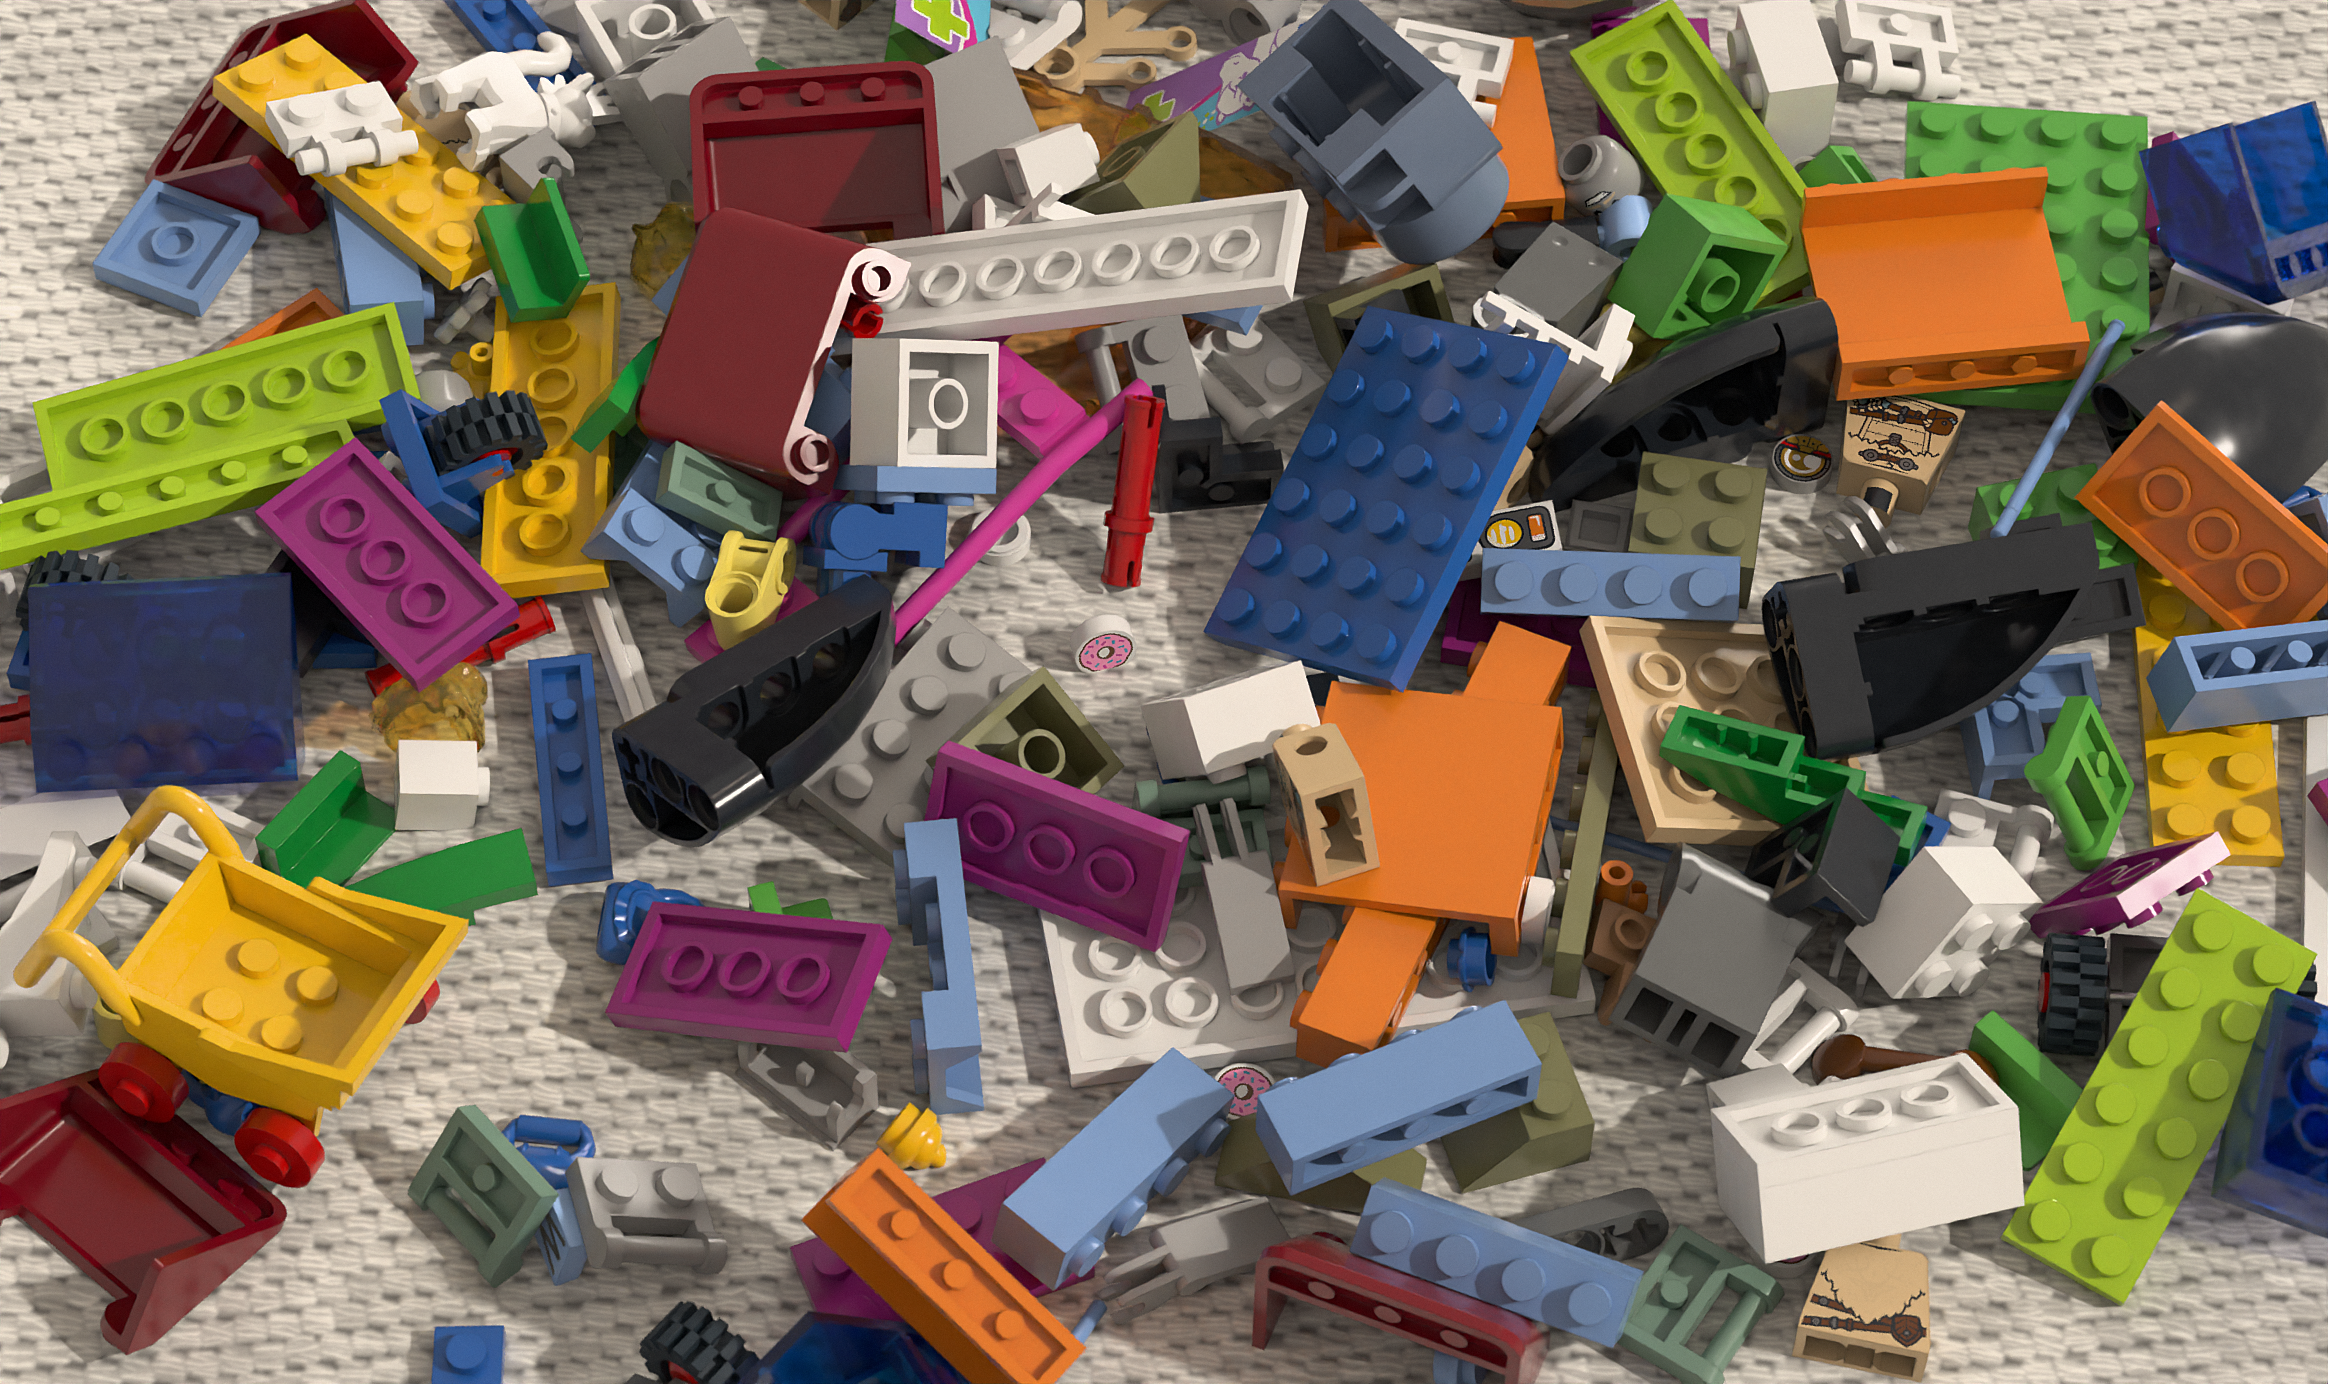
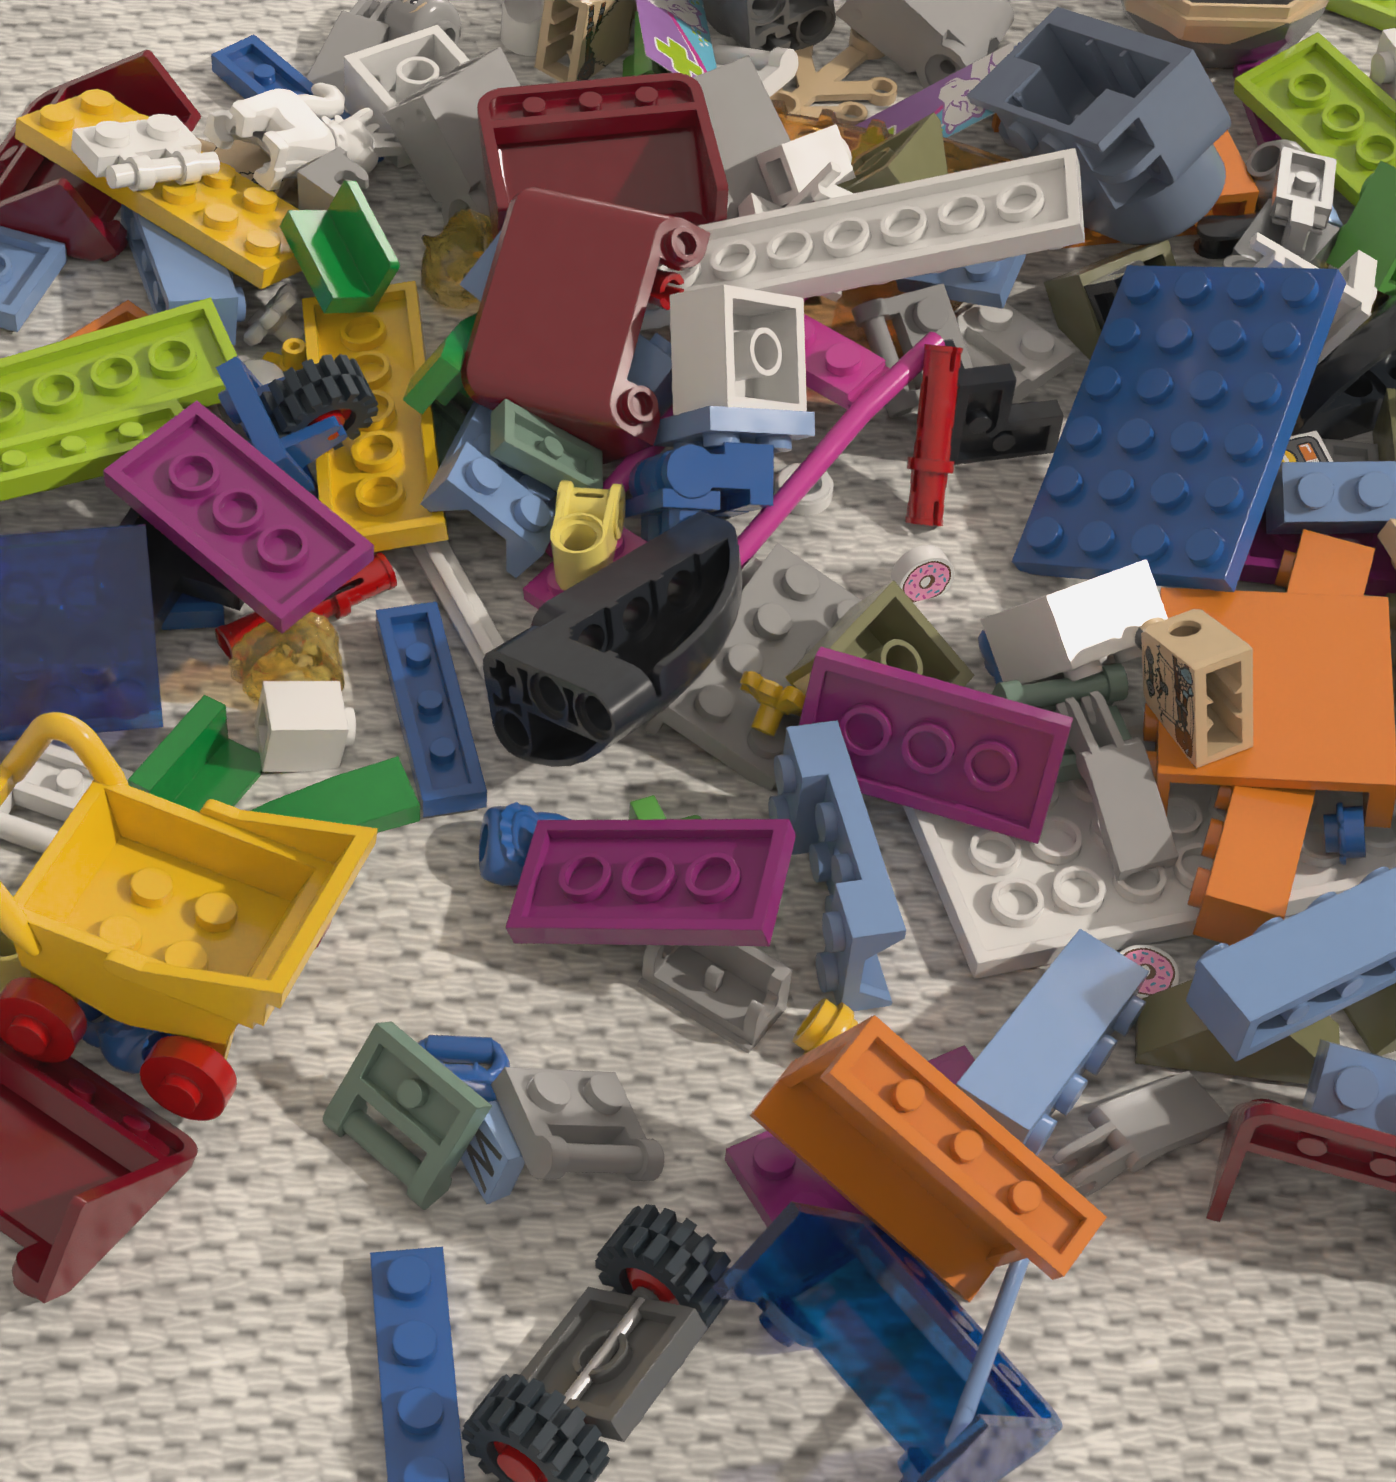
camera: 10 degrees left, 5 degrees down
(909, 787) = (773, 701): none -> yellow plant
(1581, 225) = (1302, 196): none -> light grey hinge

